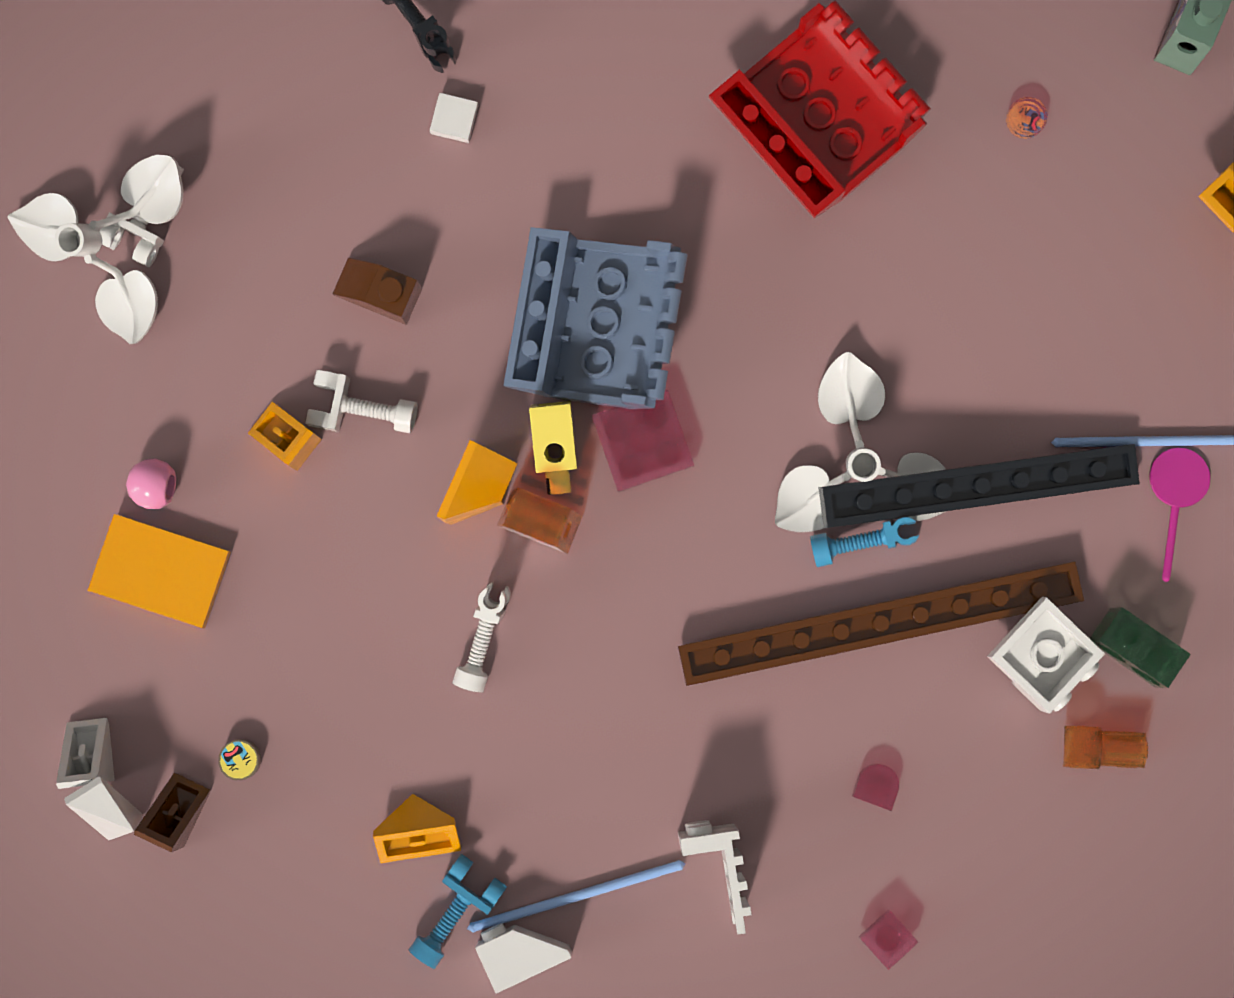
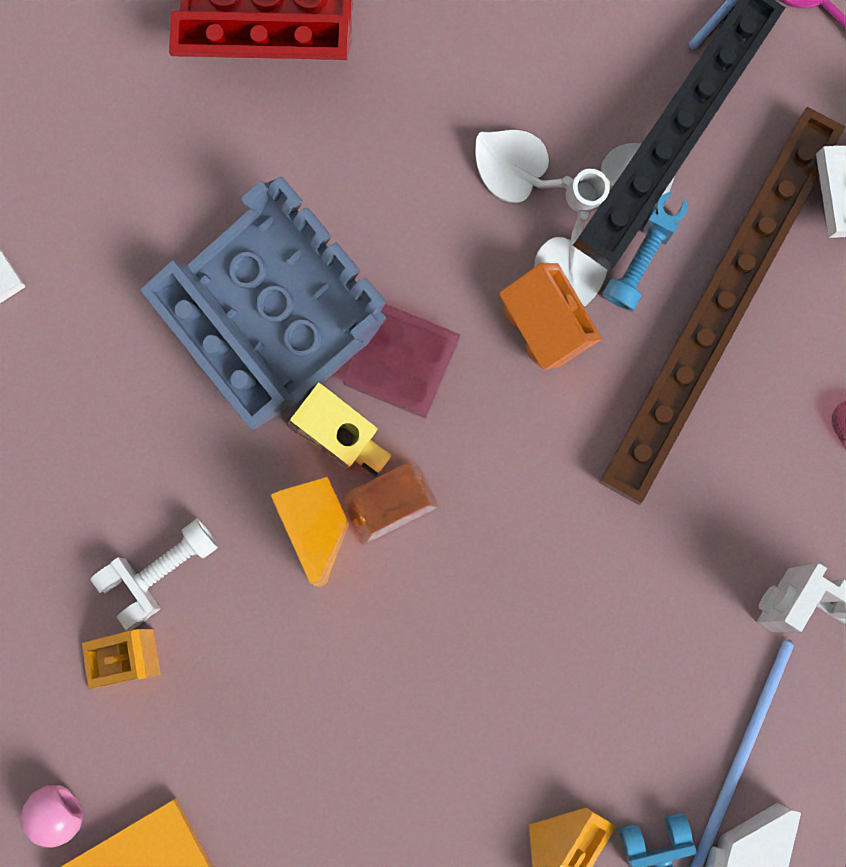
camera: 50 degrees left, 5 degrees down
(378, 289) = (73, 465): reddish brown slope -> none
(490, 613) = (472, 680): white bar -> none
(759, 514) = (549, 316): none -> orange brick

